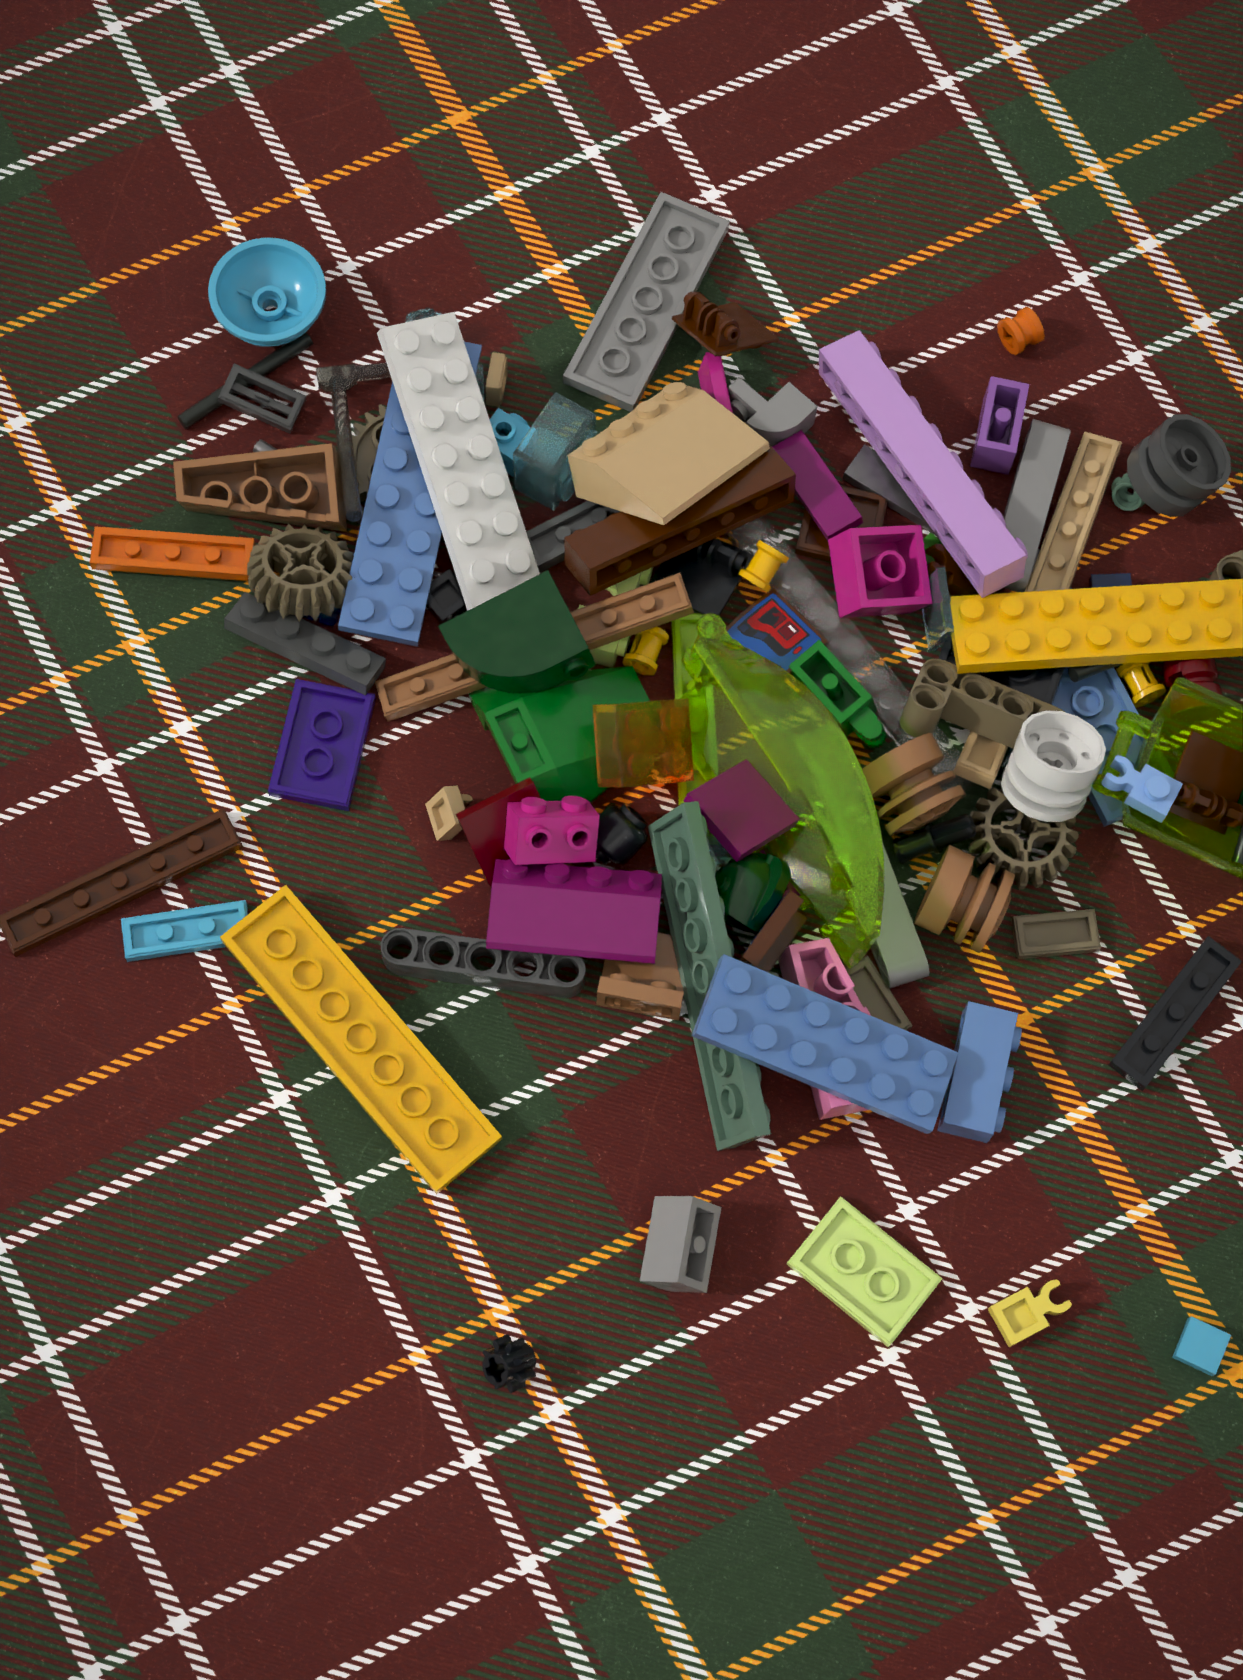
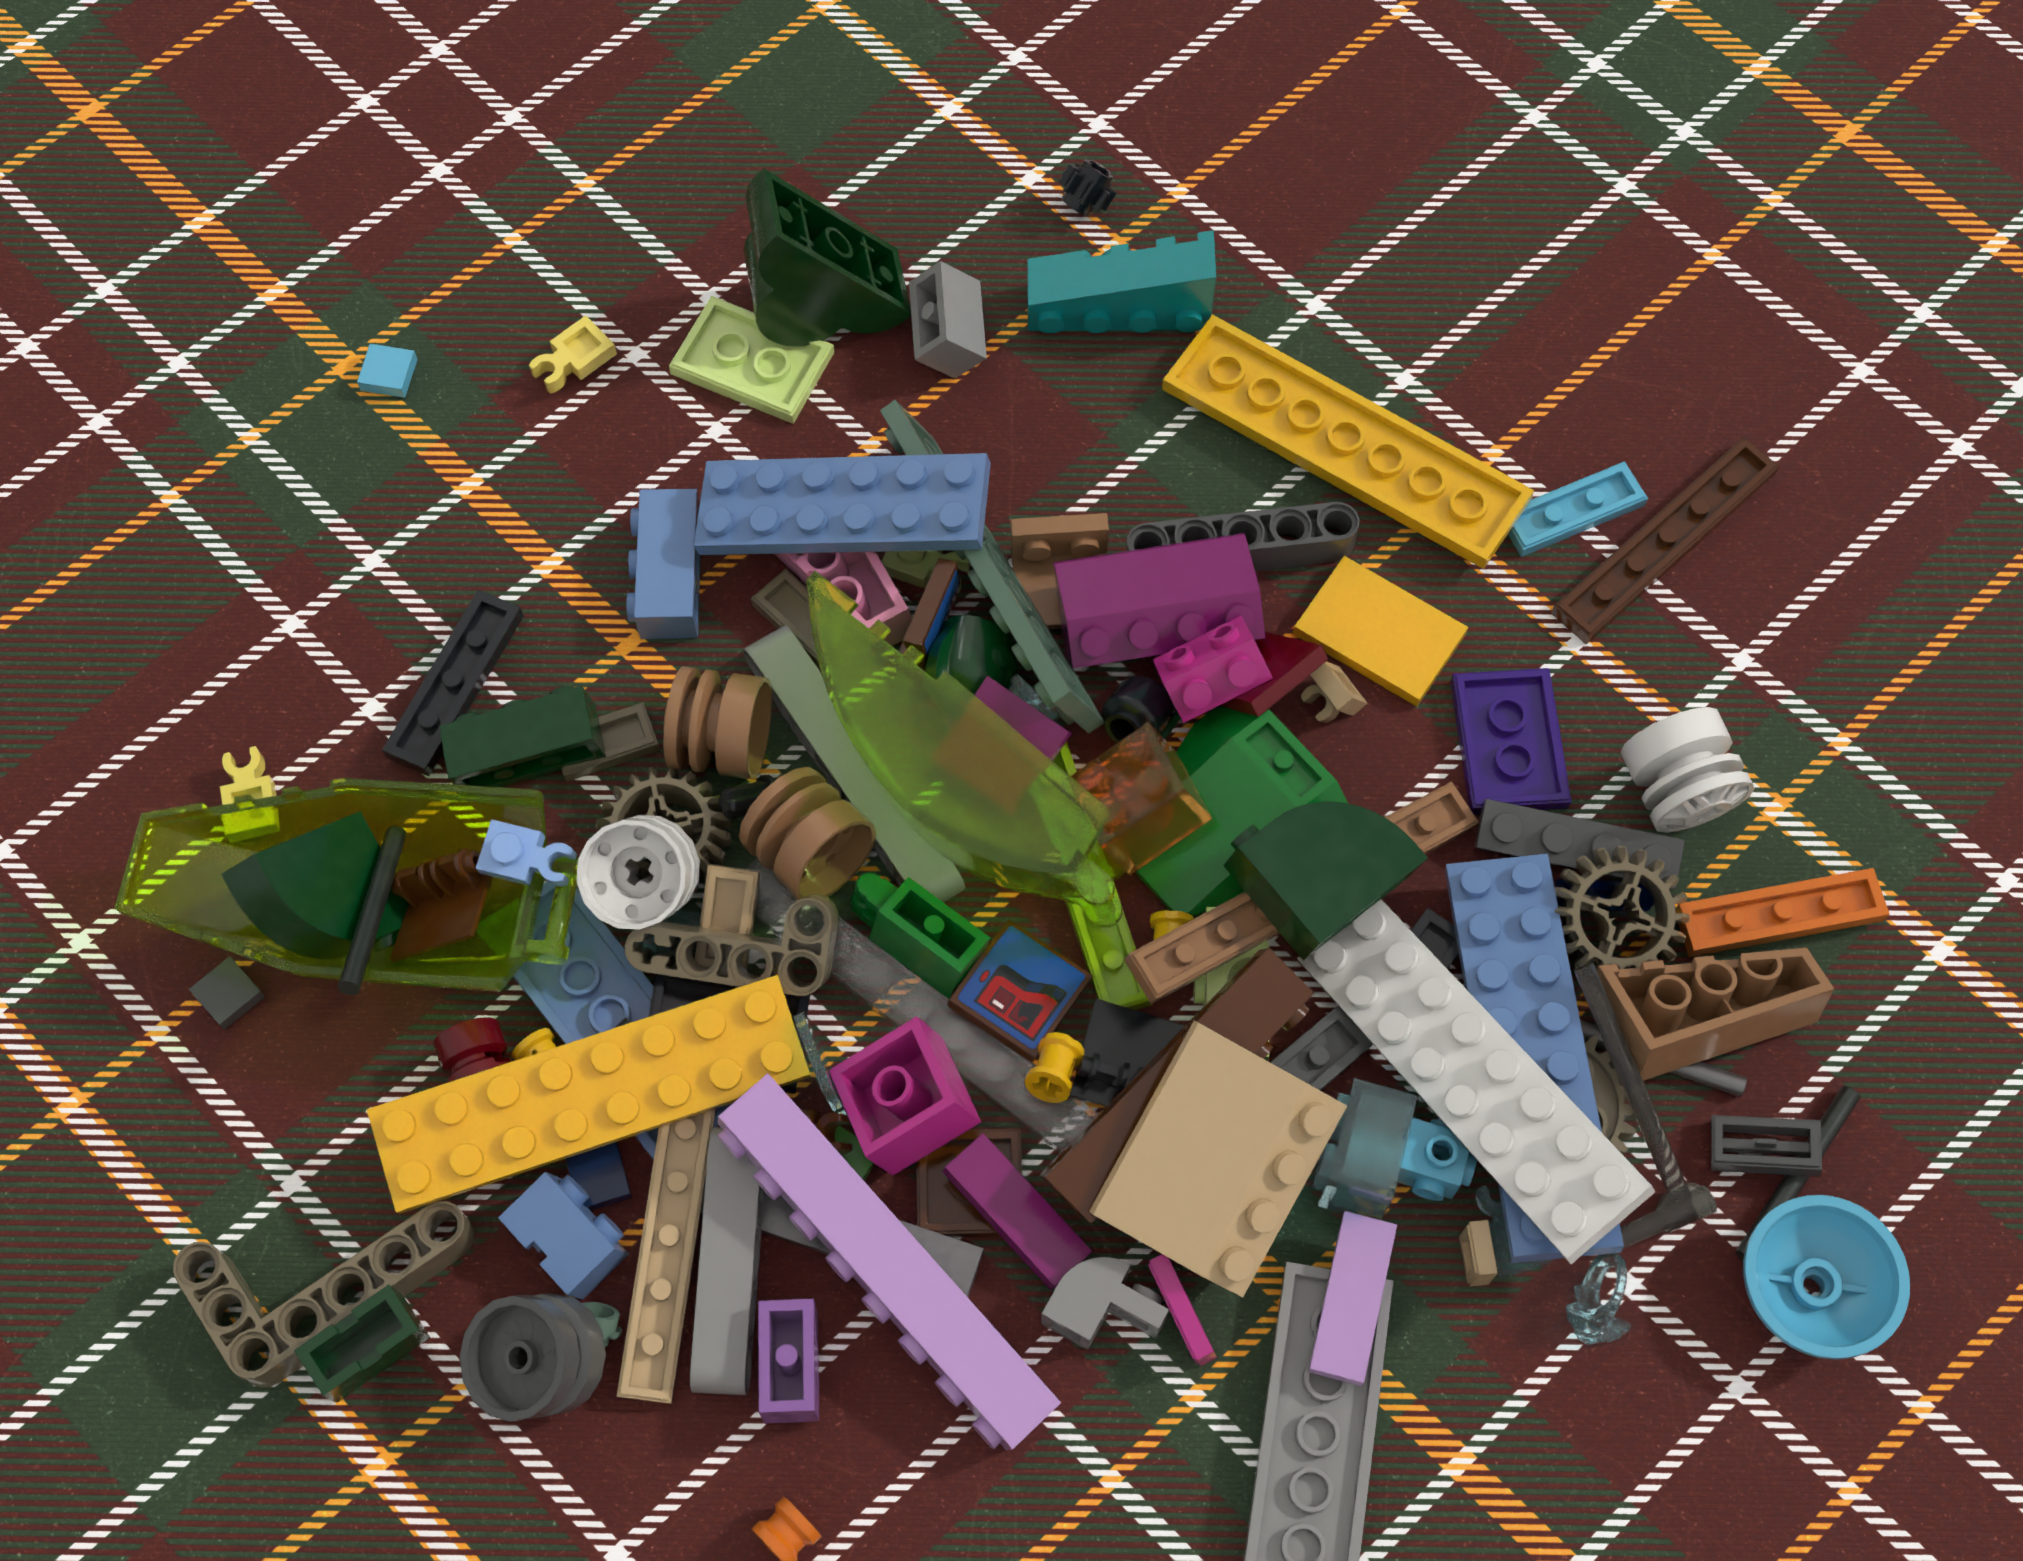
camera: 170 degrees right, 5 degrees down
(202, 660) = (1687, 769): none -> white wheel
(392, 862) = (1380, 630): none -> yellow tile
(511, 1235) = (1124, 288): none -> teal wedge
(600, 360) = (1352, 1298): none -> lavender tile
(721, 327) = (1199, 1406): reddish brown hinge -> none
(783, 1312) = (816, 268): none -> dark green brick
(1125, 937) = (523, 739): none -> dark green brick
(1141, 550) = (576, 1242): none -> medium blue brick

